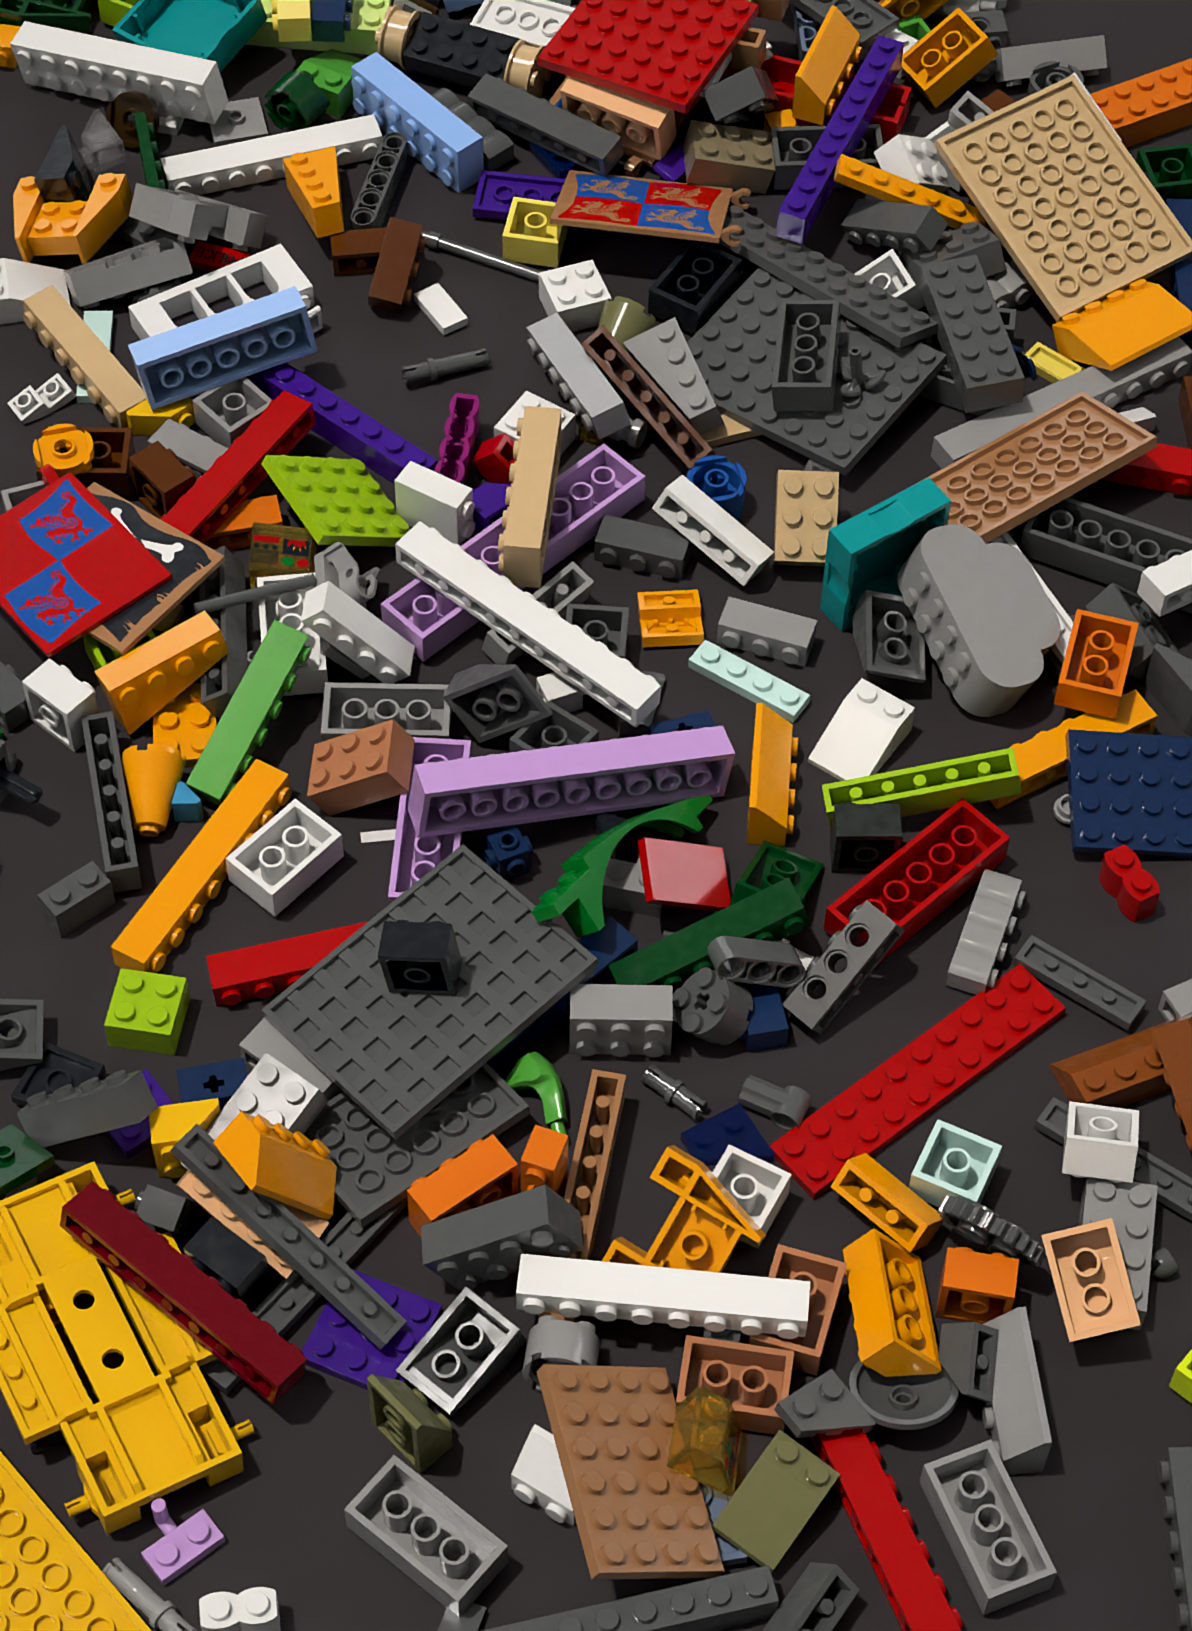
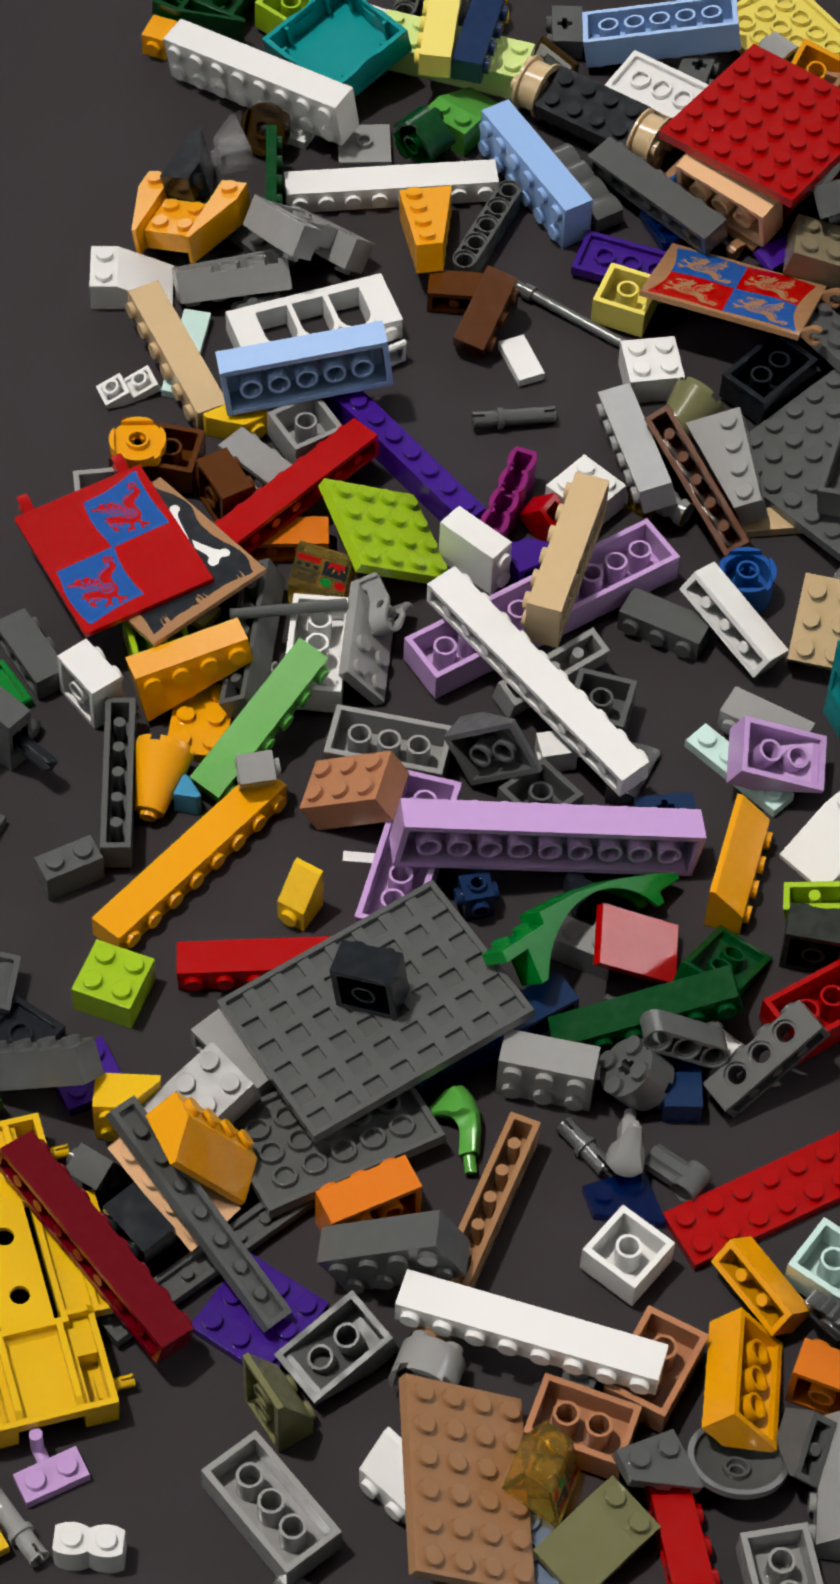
camera: 10 degrees right, 0 degrees up
(204, 1080) = (151, 1057): dark blue brick -> none
(213, 257) = (316, 276): red tile -> none
(255, 763) = (256, 769): none -> light grey brick
(285, 857) = (260, 861): white brick -> none
(326, 885) = (301, 895): none -> yellow slope
(357, 633) = (376, 663): white brick -> none
(545, 1161) = (448, 1188): orange brick -> none
(670, 618) = (677, 697): light orange slope -> none
(701, 1225) = (579, 1275): light orange wedge -> none
(721, 1090) = (627, 1153): none -> light grey animal
(785, 661) = (775, 757): none -> lavender slope

